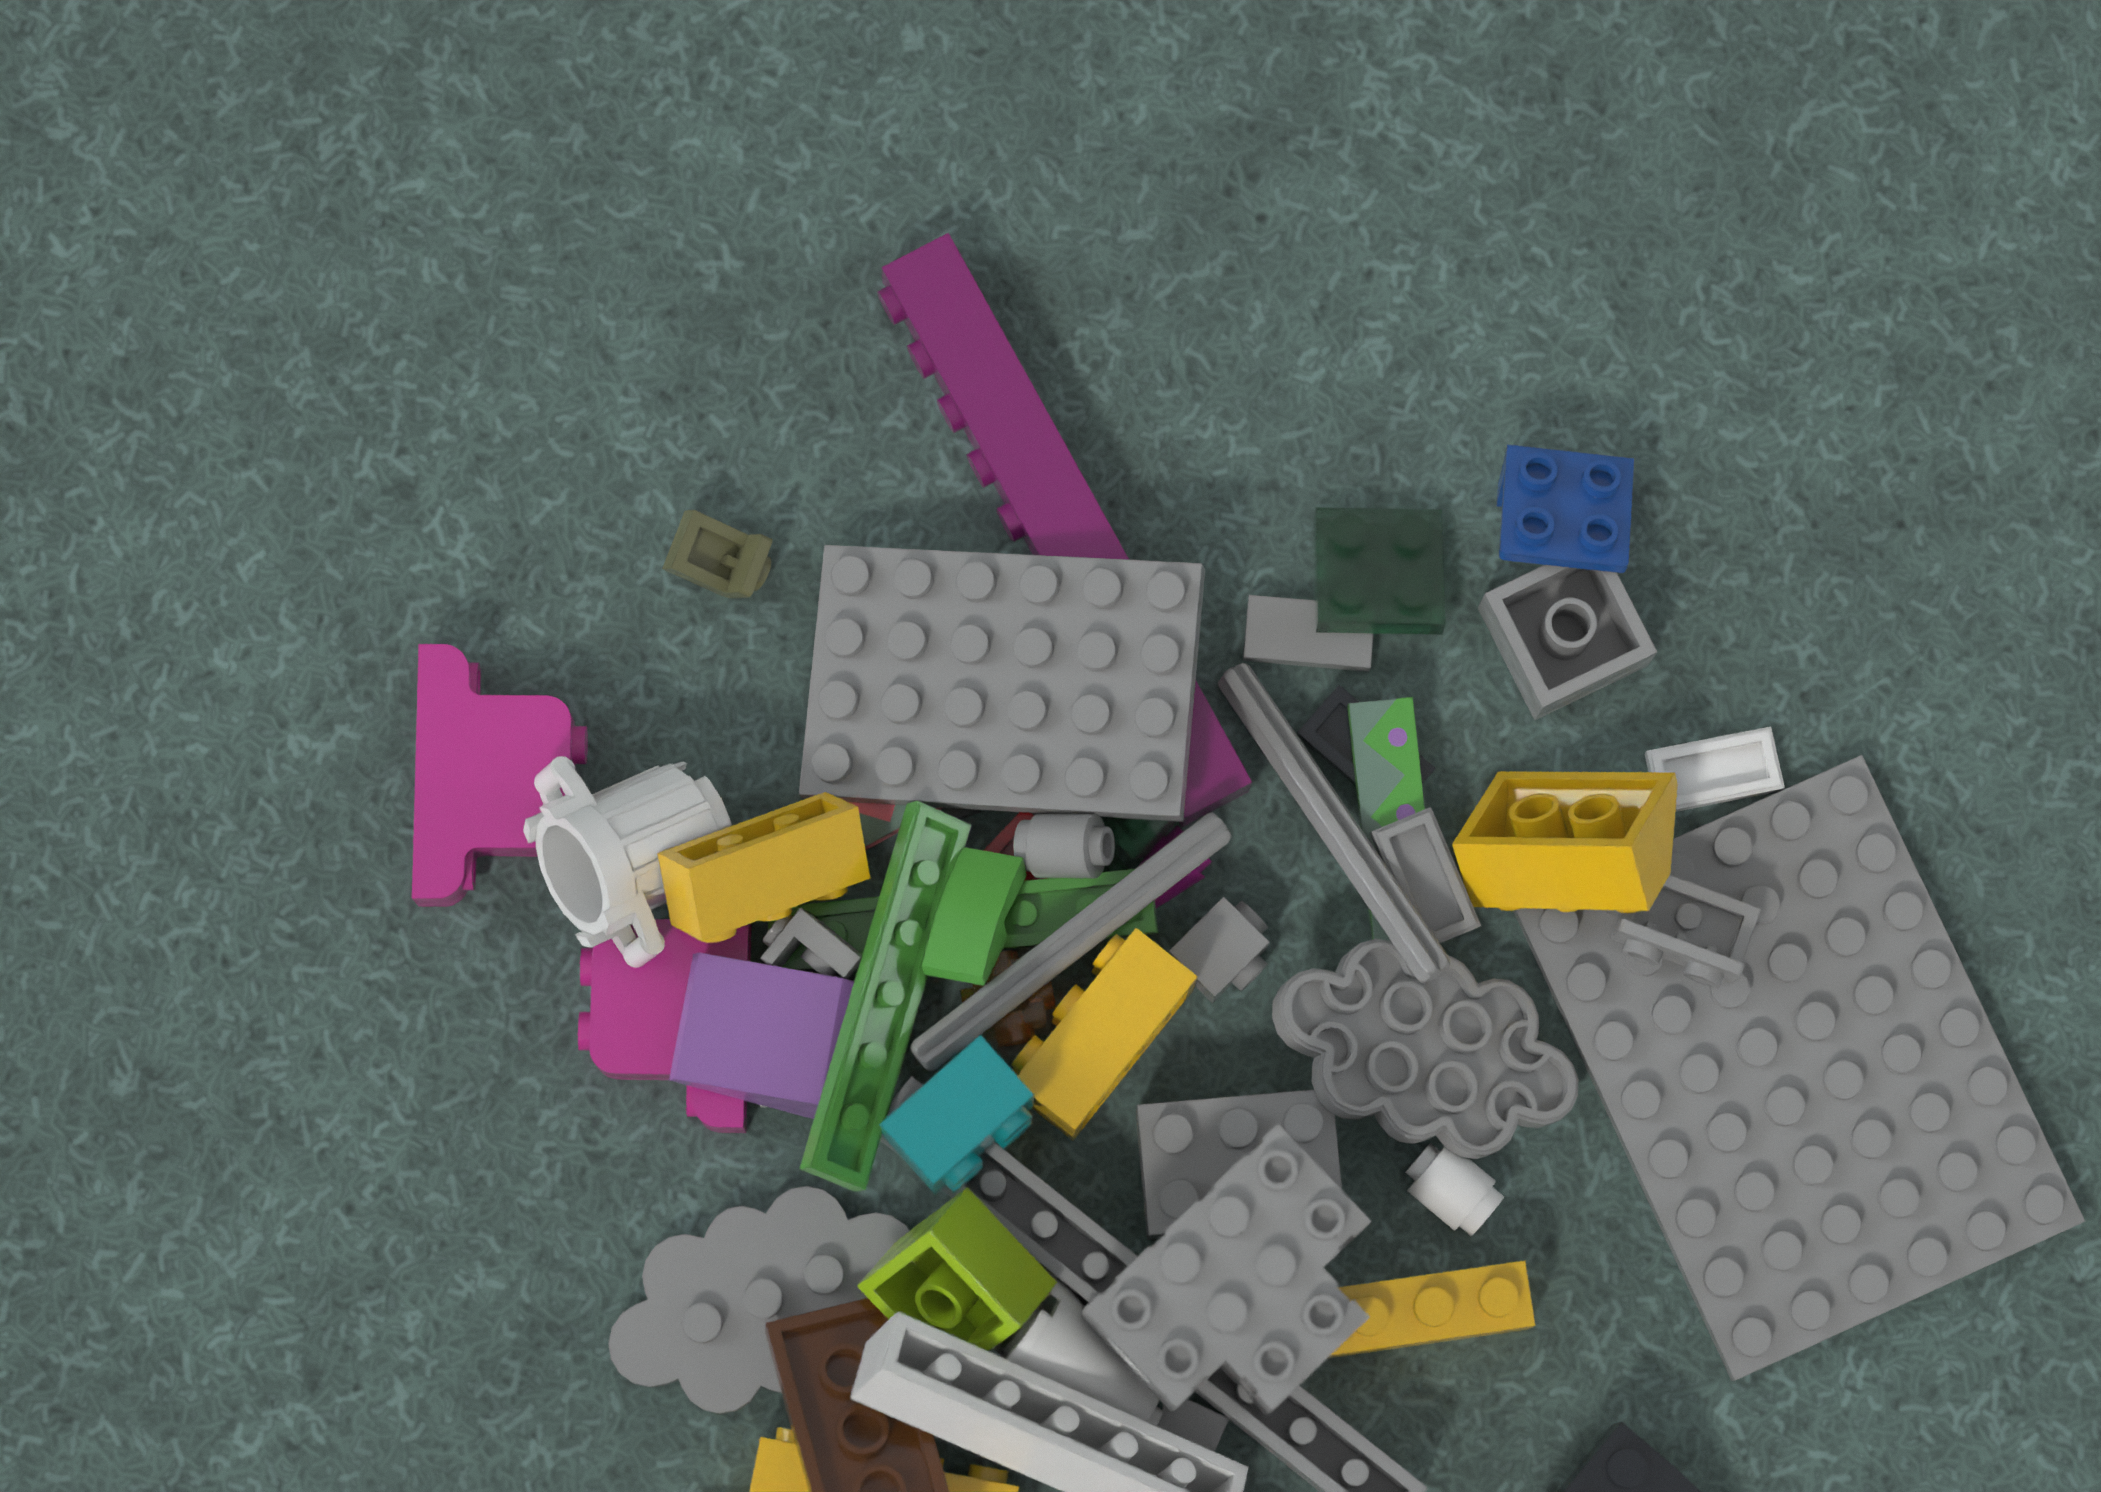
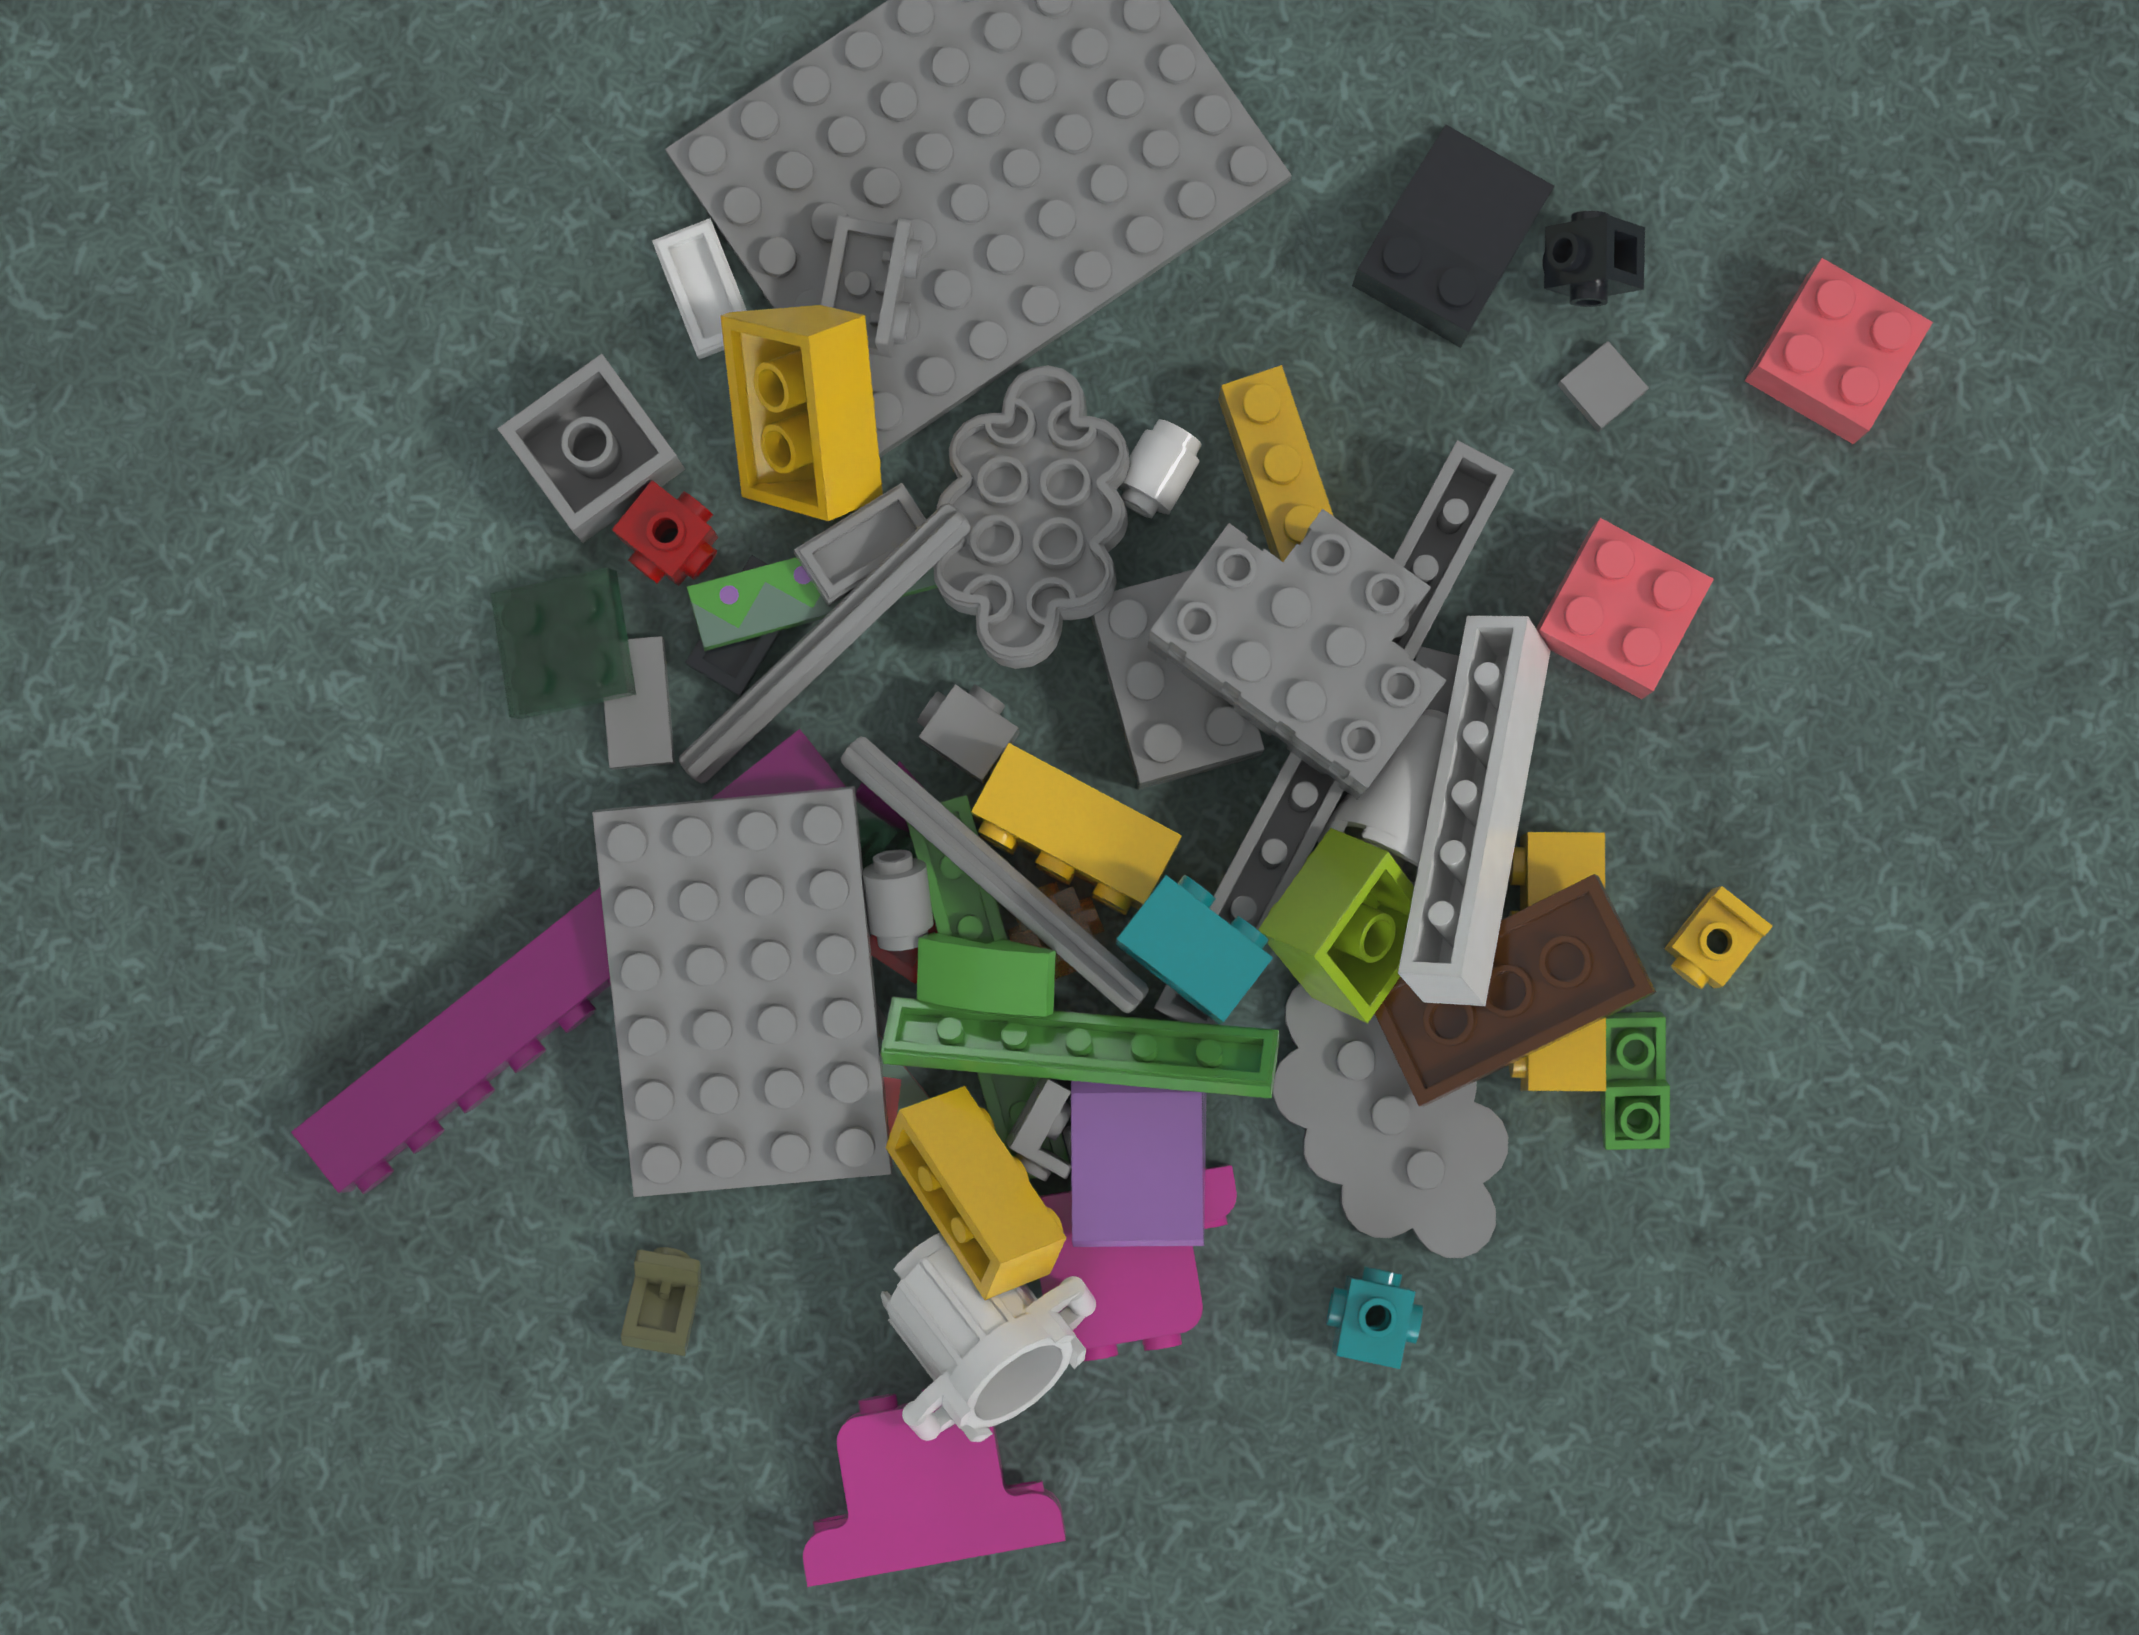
camera: 95 degrees left, 5 degrees up
(544, 1230) = (1382, 1342): none -> teal brick
(1481, 670) = (655, 516): none -> red brick
(1565, 508) = (472, 467): blue bracket -> none

